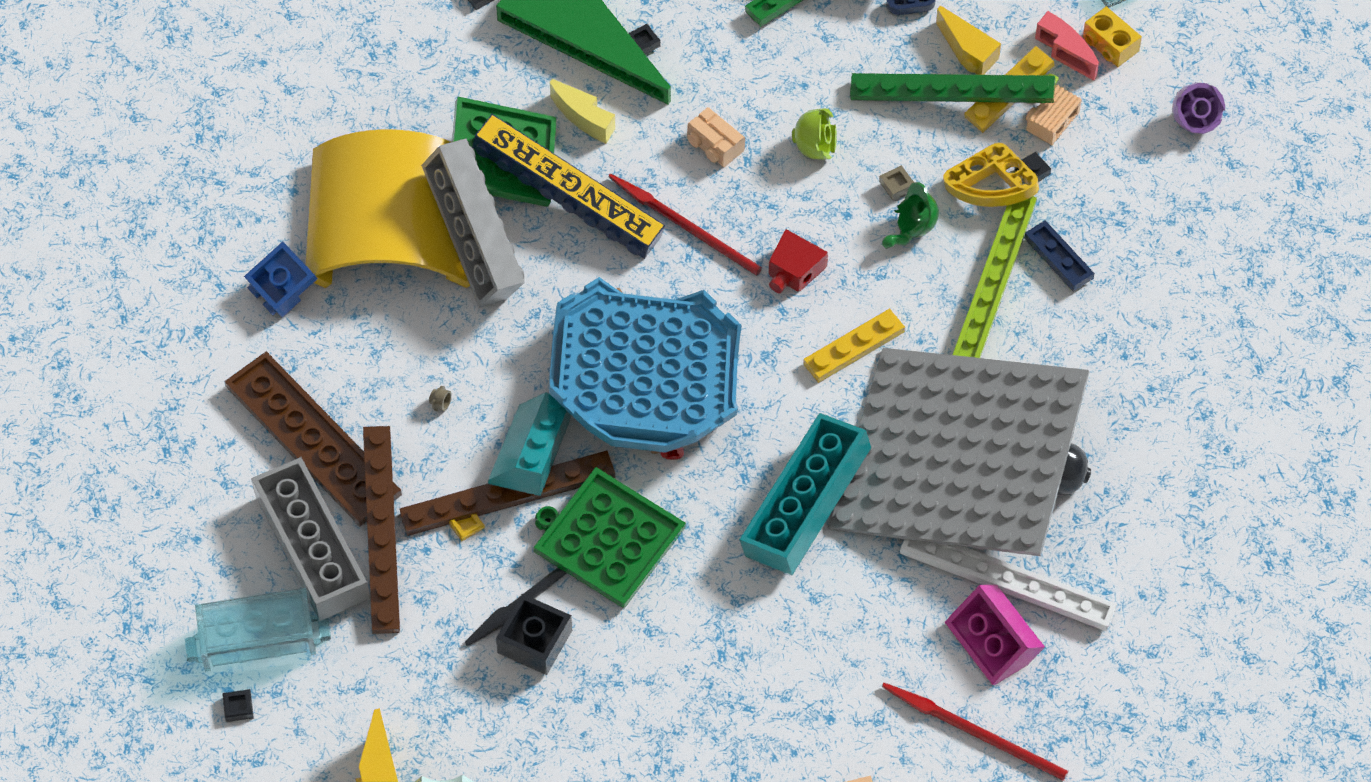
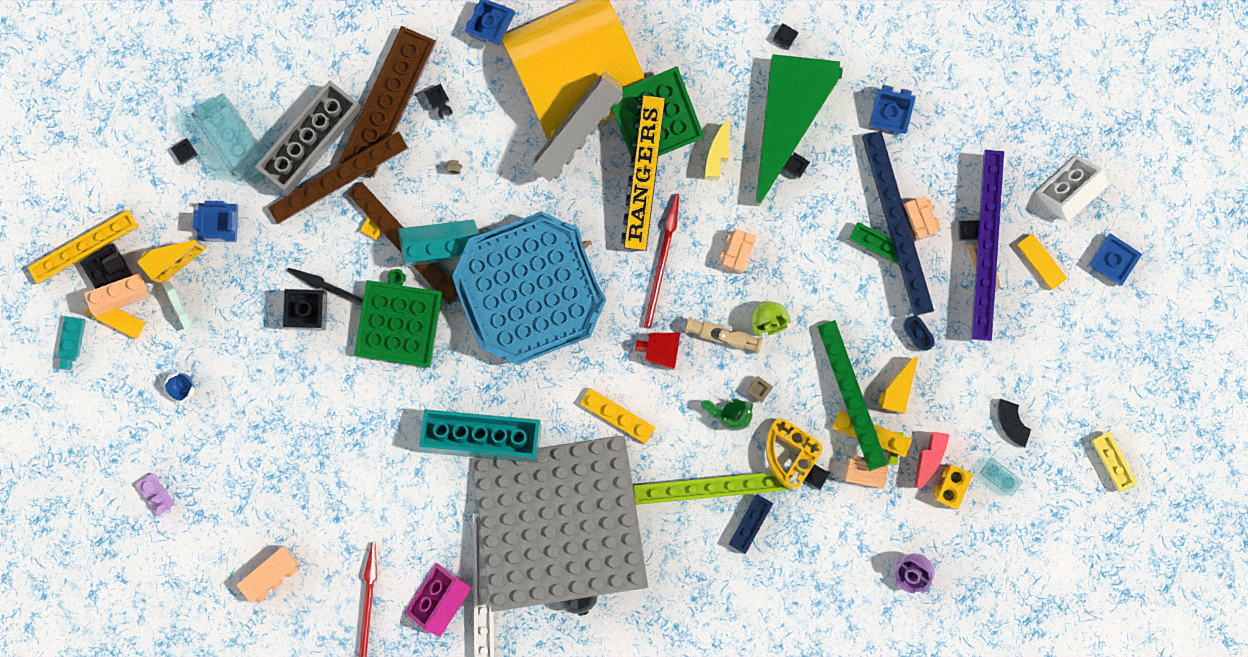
camera: 65 degrees right, 25 degrees up
(342, 381) = (438, 99): none -> black plate
(353, 697) = (216, 221): none -> blue panel
(823, 181) = (735, 338): none -> tan piece

